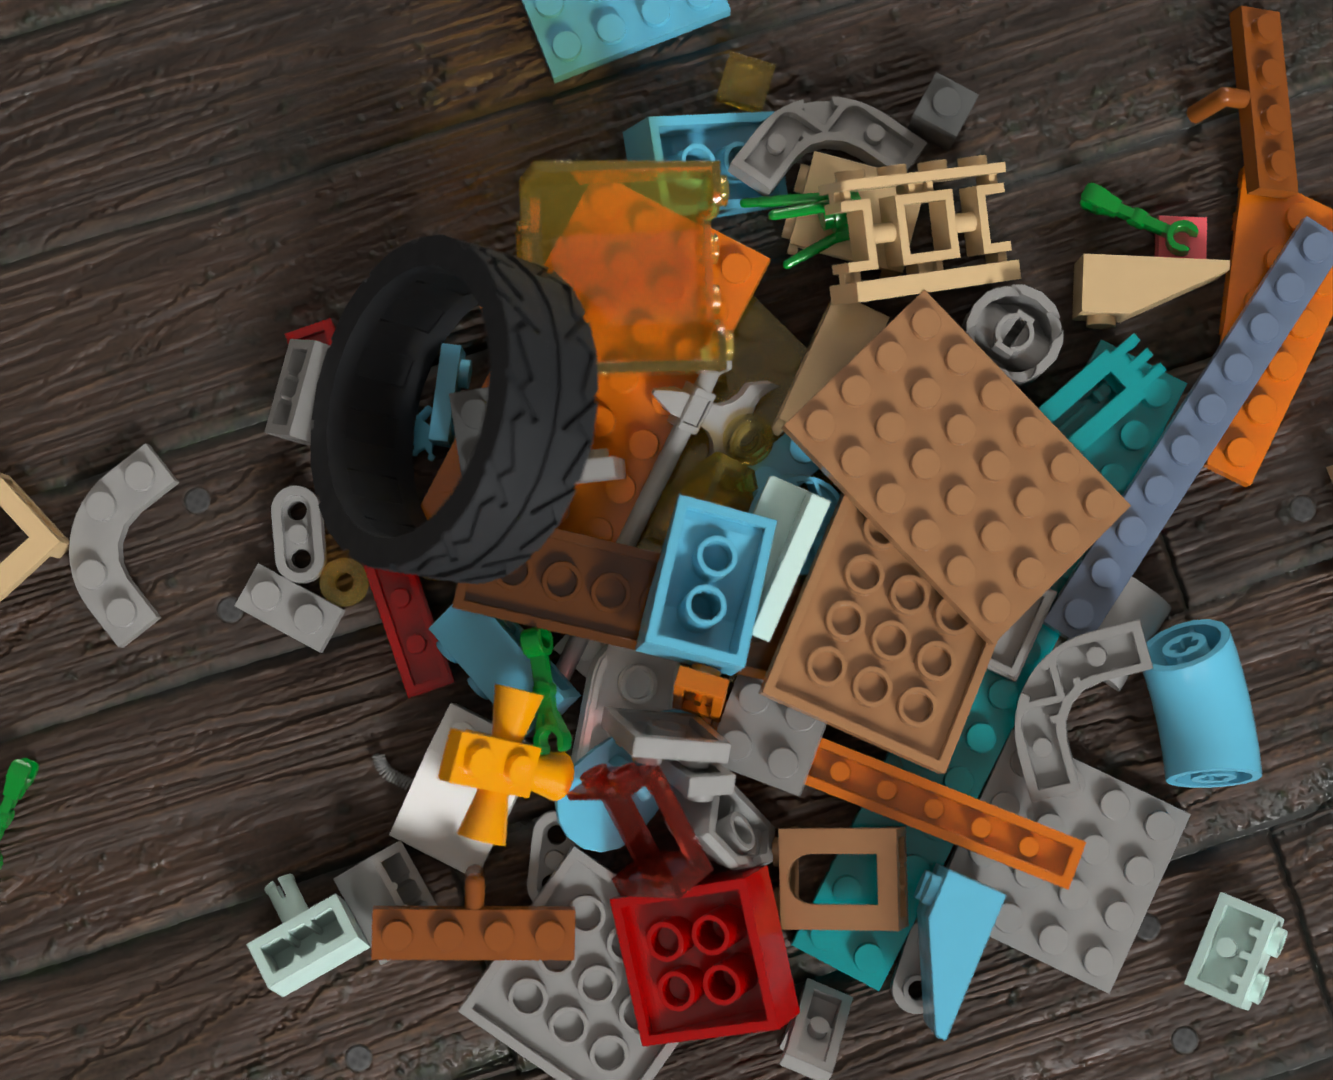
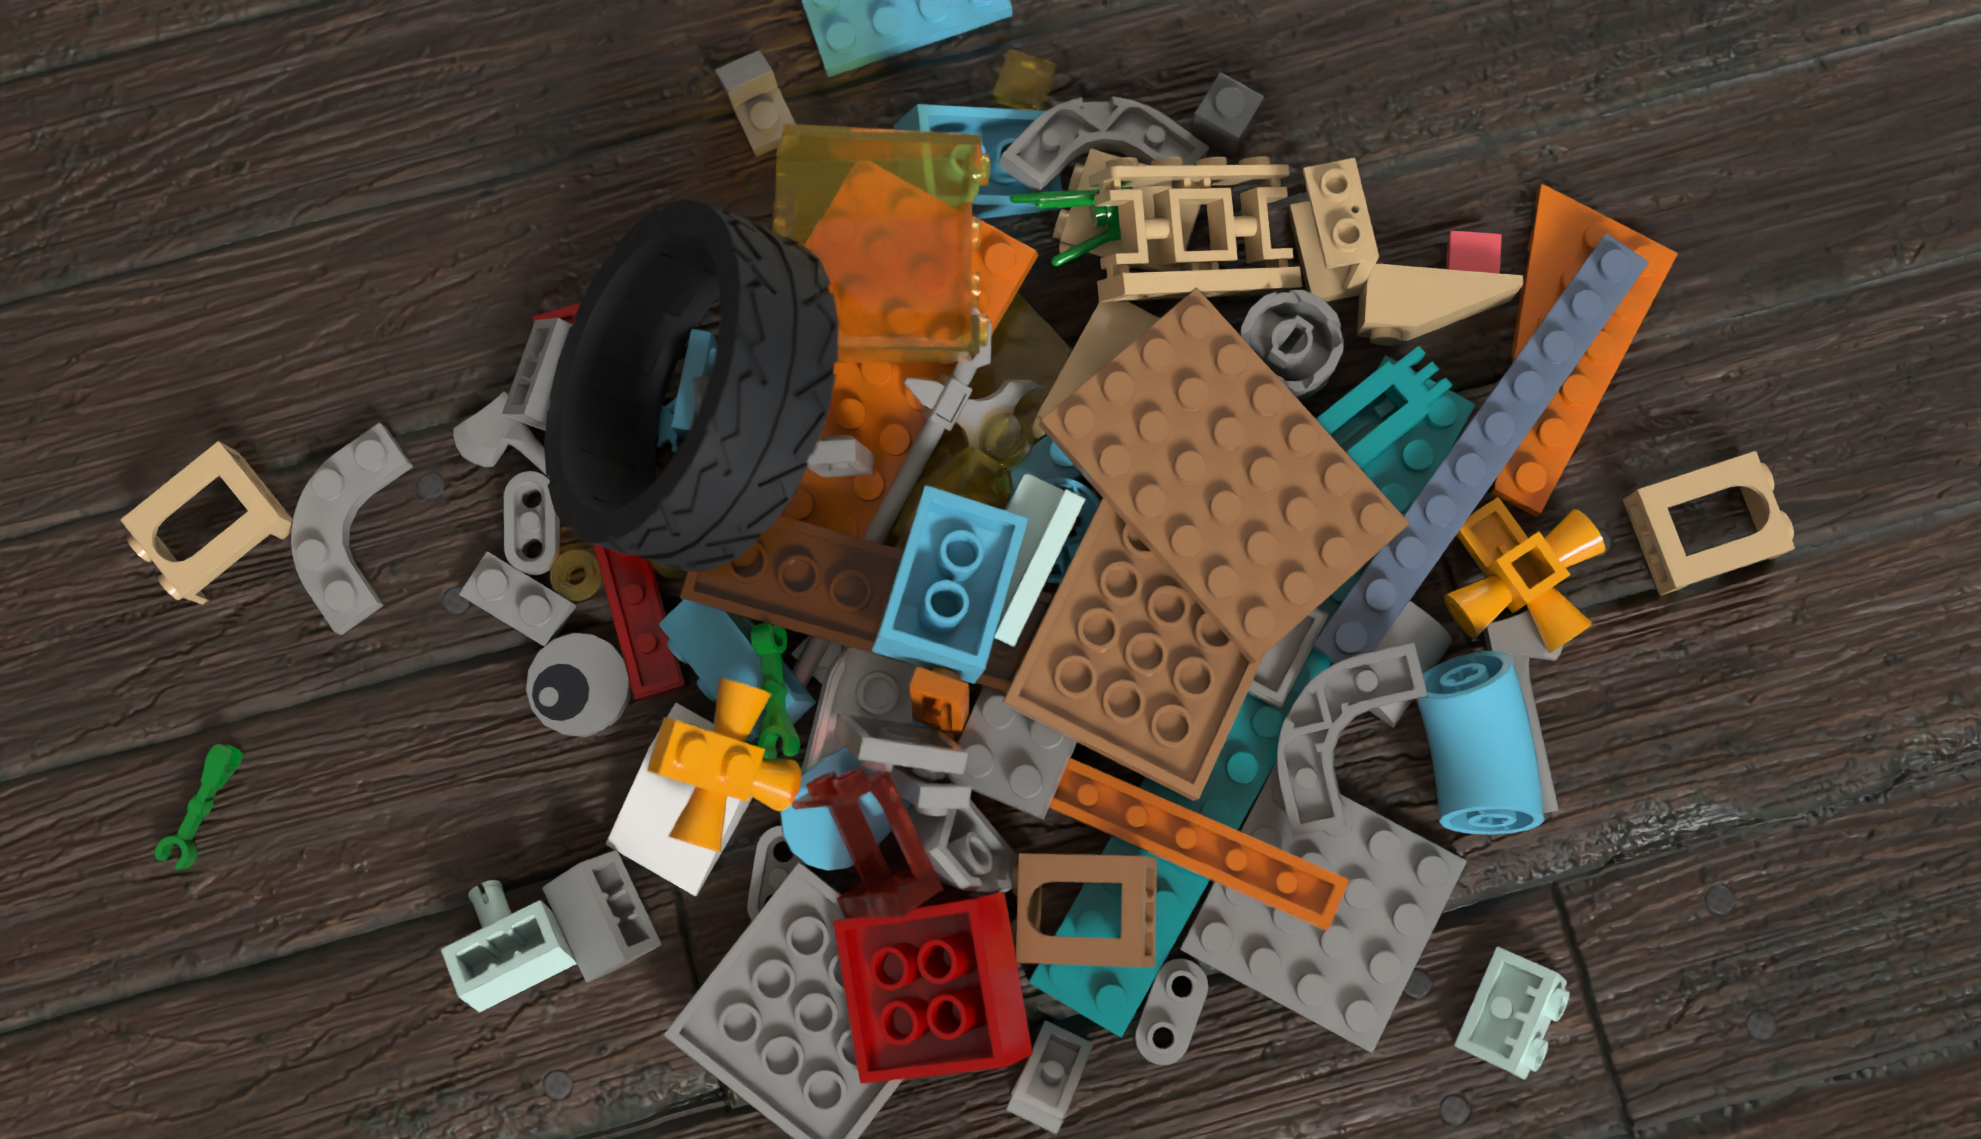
camera: 10 degrees right, 5 degrees down
(250, 448) = (488, 434): none -> light grey piece
(353, 686) = (578, 685): none -> light grey tile
(382, 763) = (609, 777): light grey leg -> none
(473, 929) = (683, 946): dark orange plate -> none
(488, 112) = (756, 100): none -> light grey slope
(952, 932) = (1200, 970): medium azure slope -> none
(1047, 237) = (1331, 240): none -> tan panel
(1102, 202) = (1389, 214): green piece -> none
(1236, 544) = (1523, 572): none -> light orange brick
(1242, 600) = (1522, 641): none -> light grey piece
(1261, 102) = (1561, 119): dark orange plate -> none

